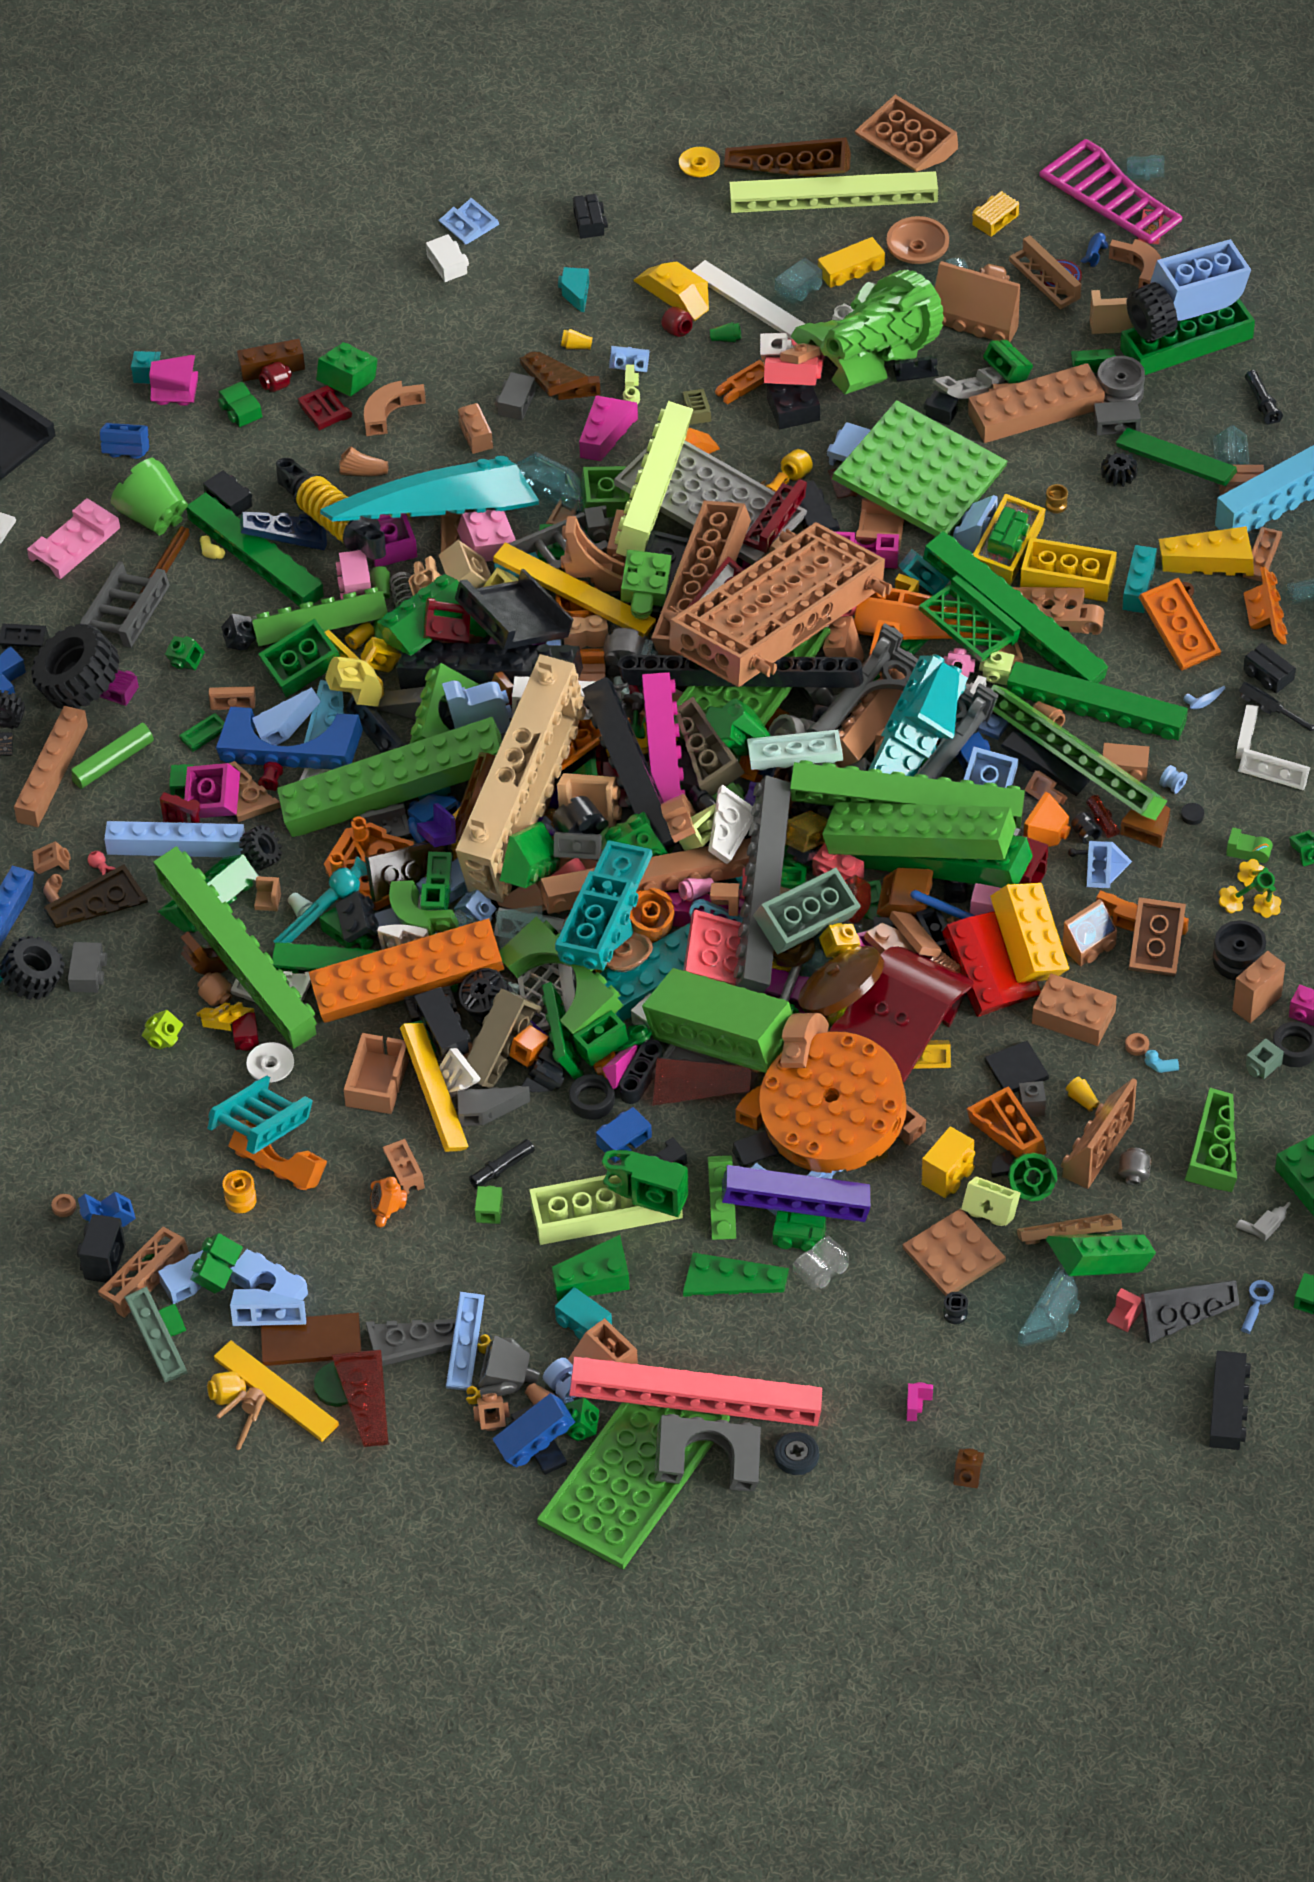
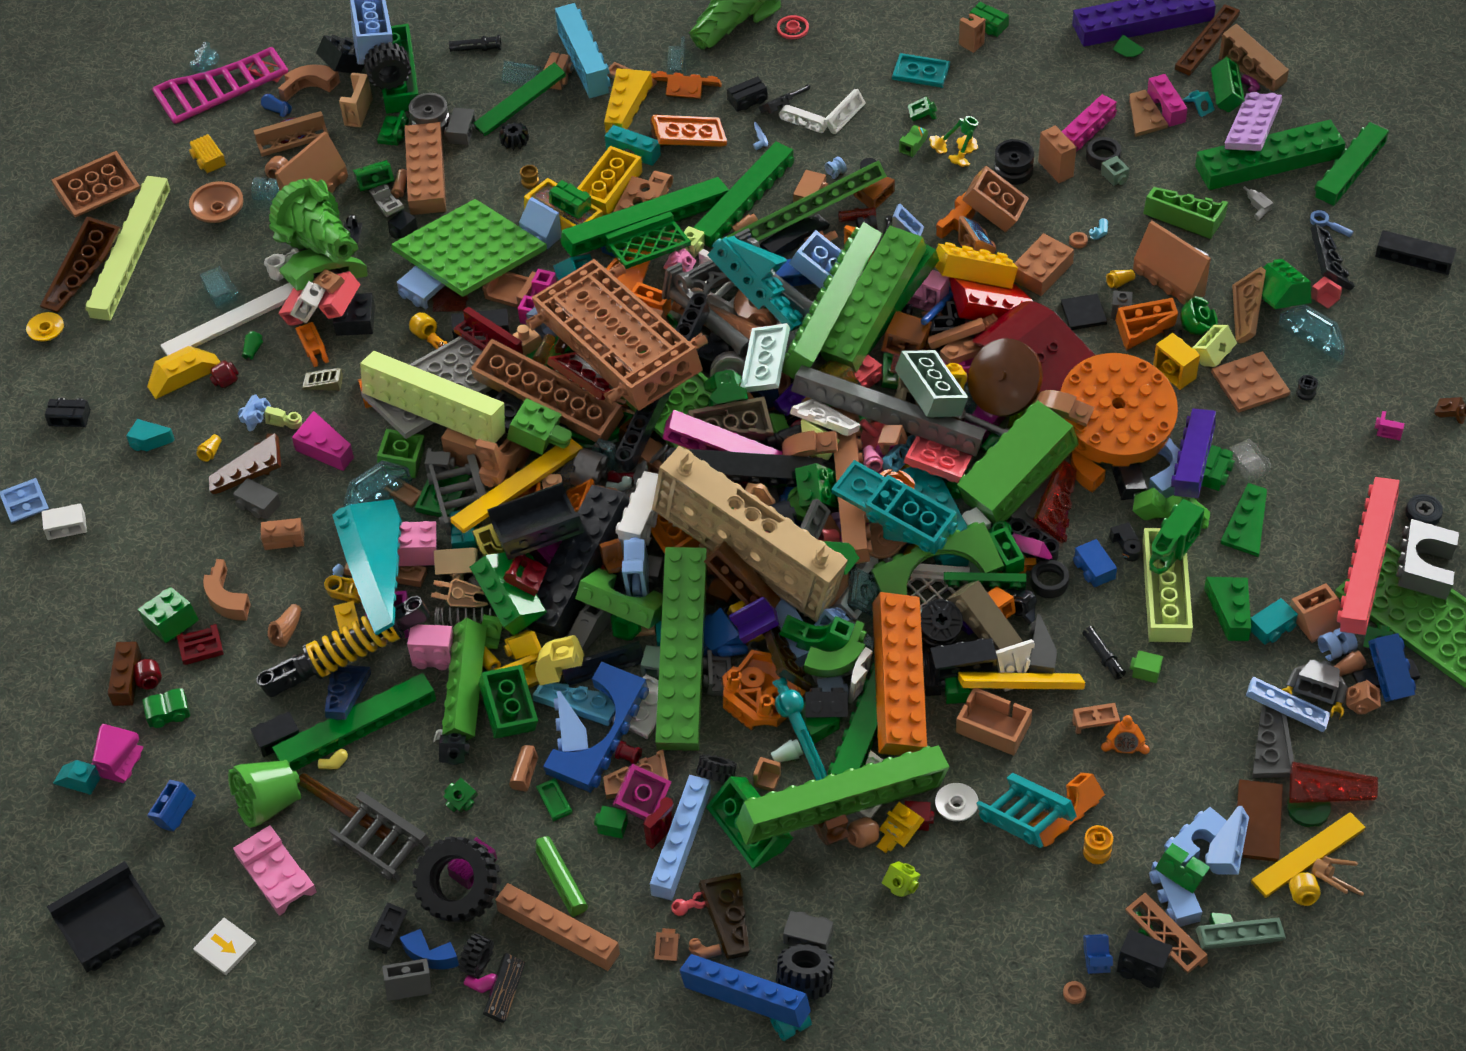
camera: 75 degrees left, 0 degrees up
(851, 262) = (215, 248): yellow brick -> none

